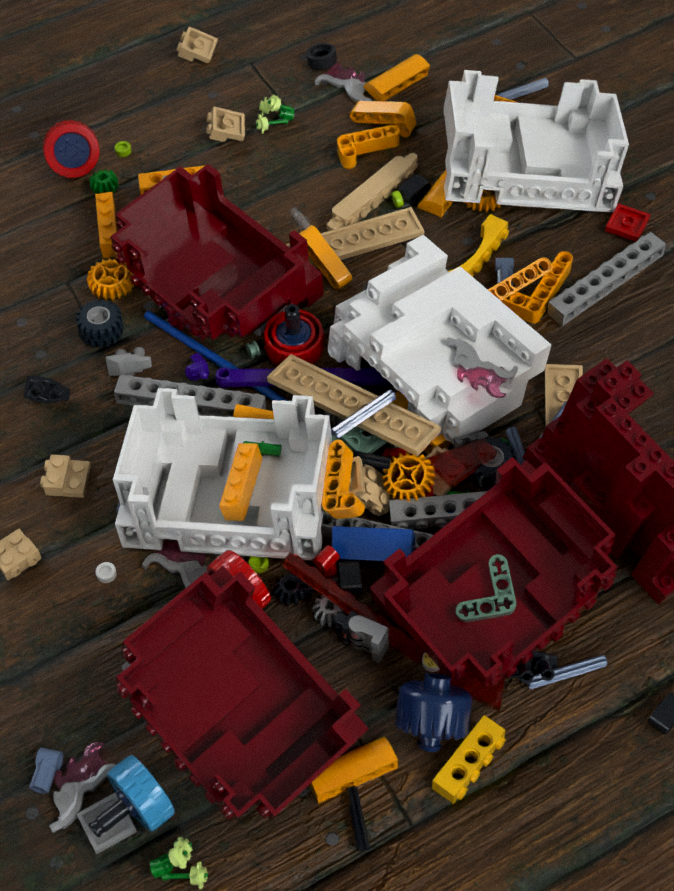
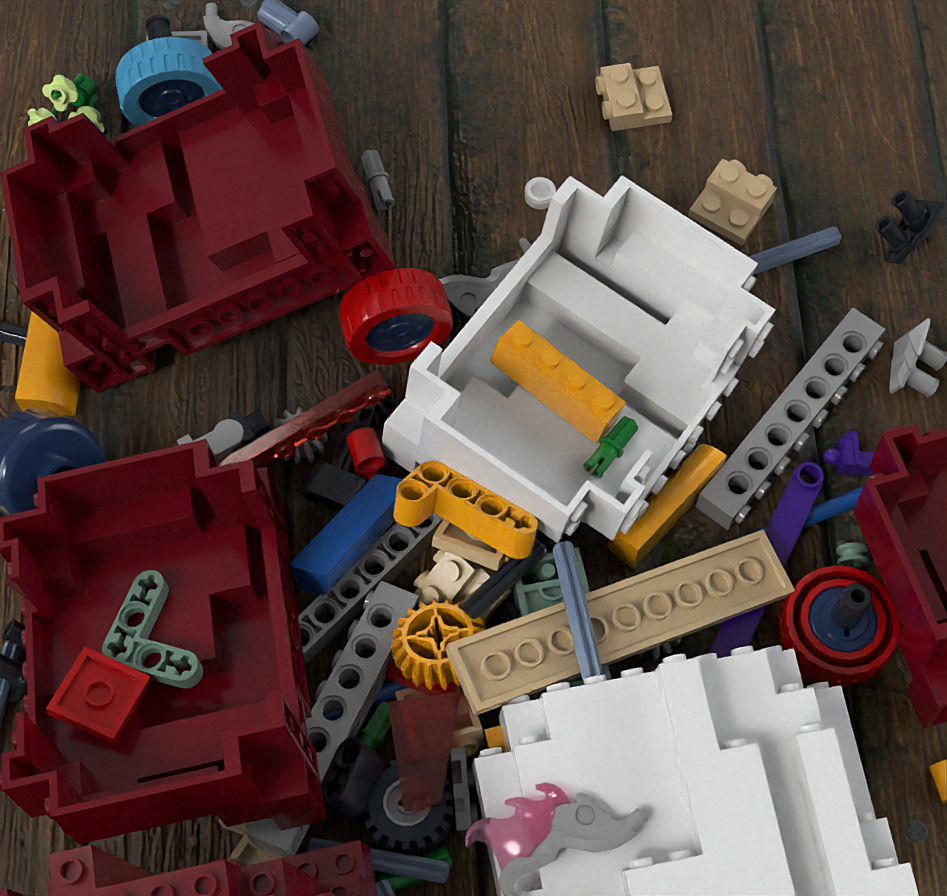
camera: 115 degrees right, 10 degrees up
(89, 442) = (796, 249): none -> sand blue axle
(536, 592) = (98, 695): none -> red plate

